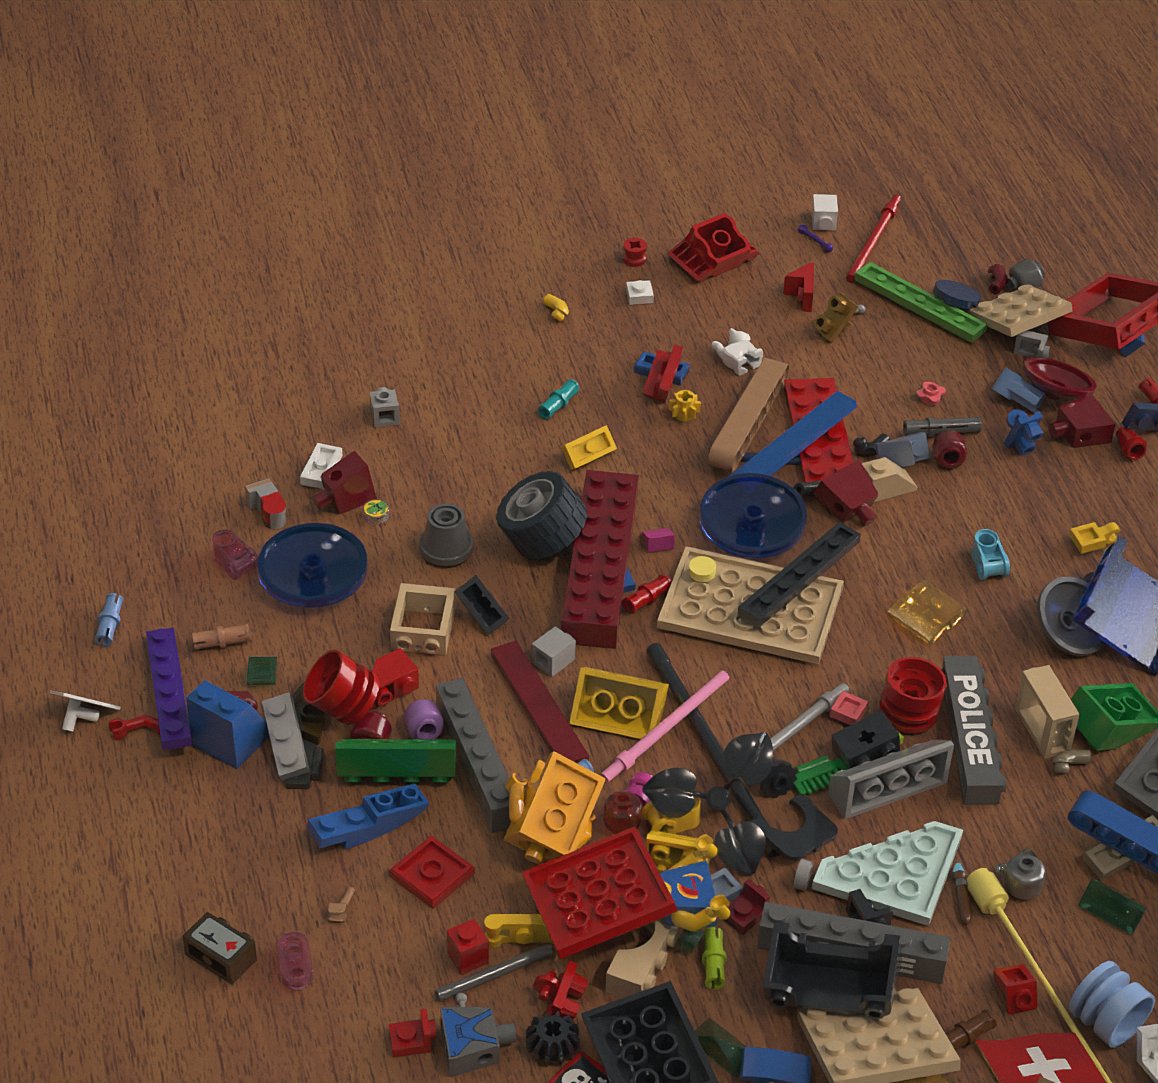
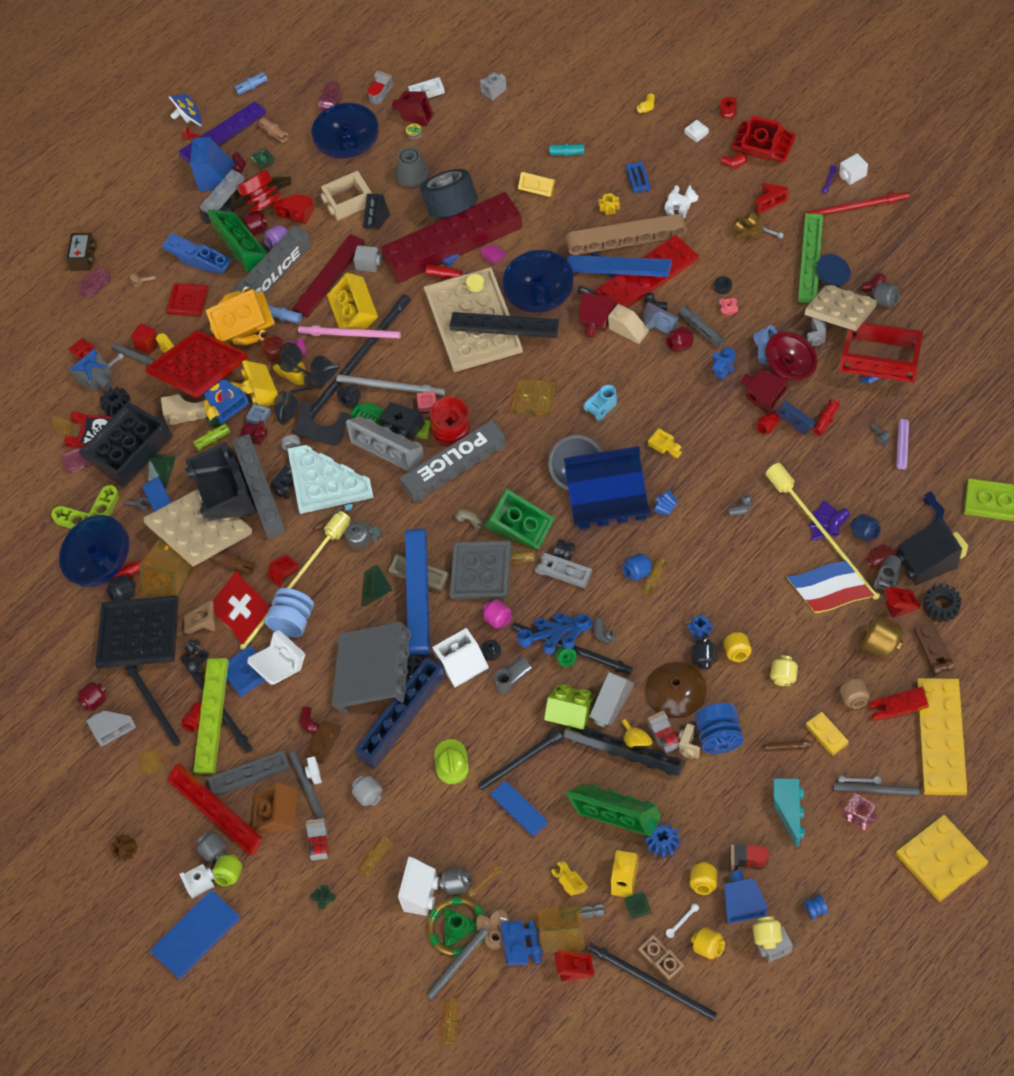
camera: 65 degrees right, 15 degrees up
(557, 989) = (142, 387): red hips -> none
(663, 373) = (623, 180): red bracket -> none
(719, 288) = (734, 162): none -> red arm
(893, 383) = (723, 285): none -> black tile
(1046, 711) = (485, 485): tan window -> none

